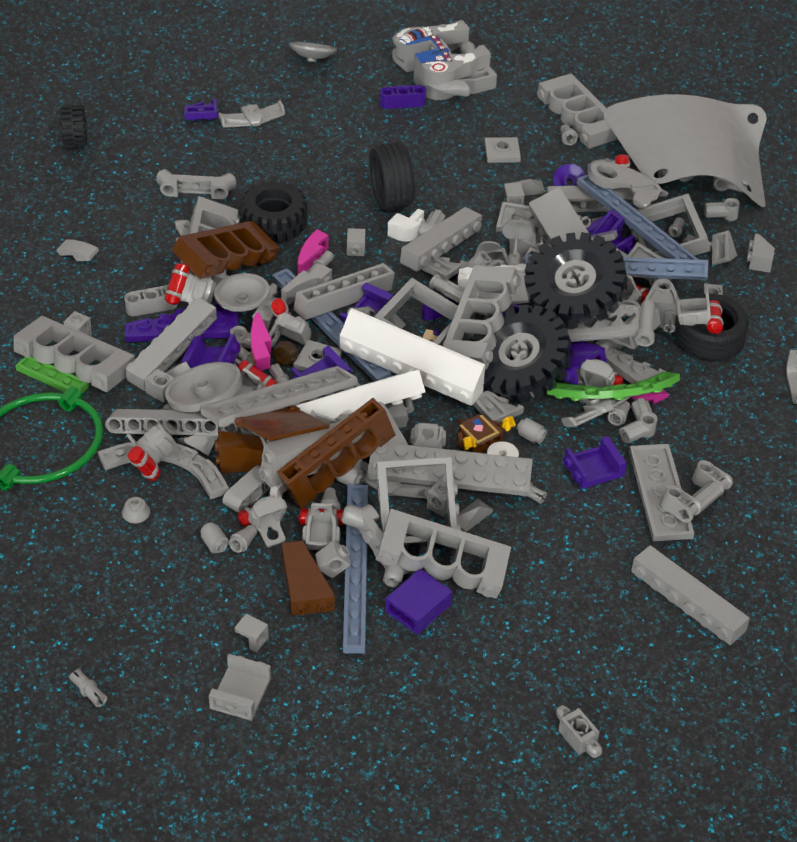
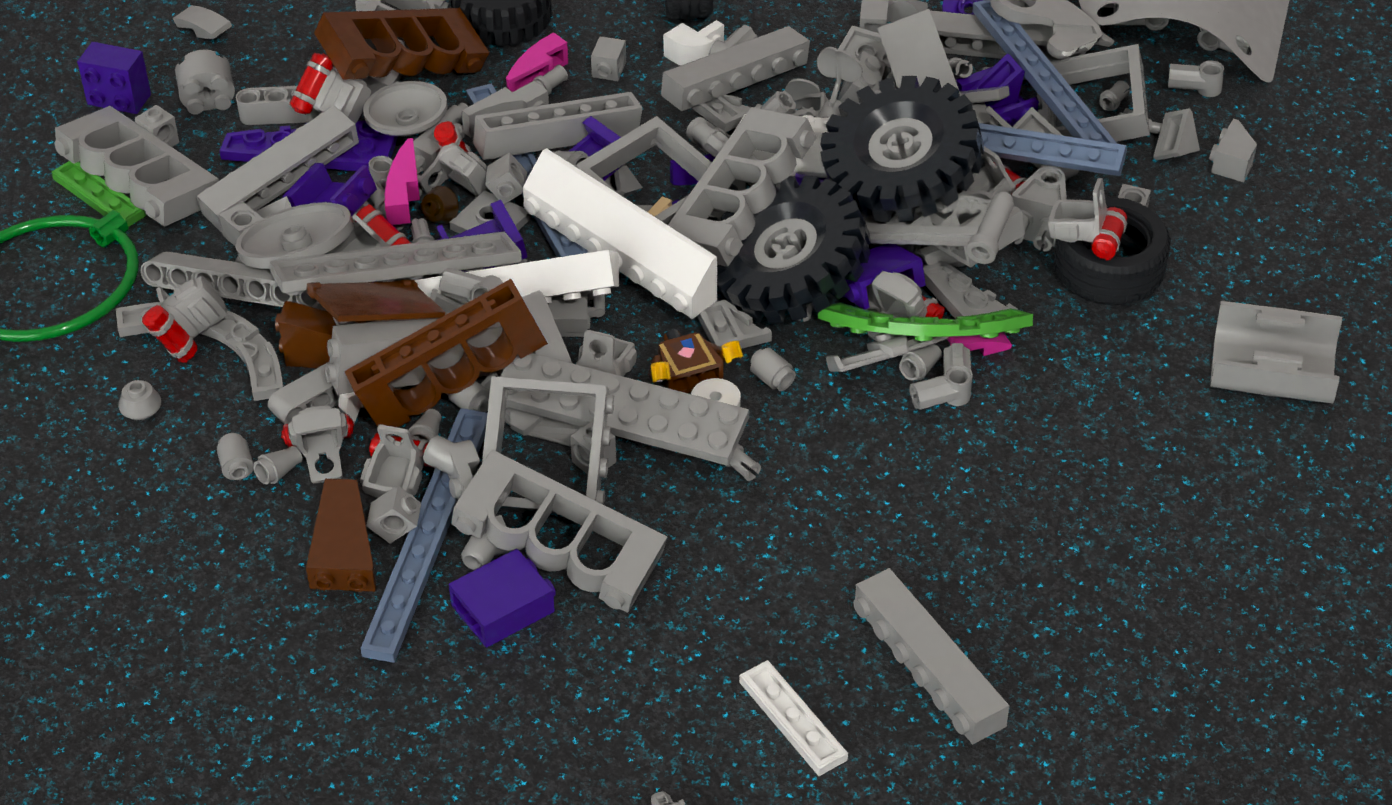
camera: 15 degrees right, 0 degrees up
(37, 295) = (114, 77): none -> dark purple brick
(99, 291) = (204, 81): none -> light grey brick
(201, 443) = (263, 315): light grey slope -> none
(241, 687) = (190, 684): light grey panel -> none
(254, 630) = (238, 602): light grey panel -> none
(323, 330) = (506, 178): none -> light grey brick
(334, 406) = (465, 285): none -> light grey piece
(473, 514) = (635, 482): light grey slope -> none
(595, 464) = (853, 434): dark purple panel -> none
(620, 646) = (793, 718): none -> white tile
(654, 473) = (942, 492): light grey plate -> none
(709, 479) = (1026, 493): light grey piece -> none

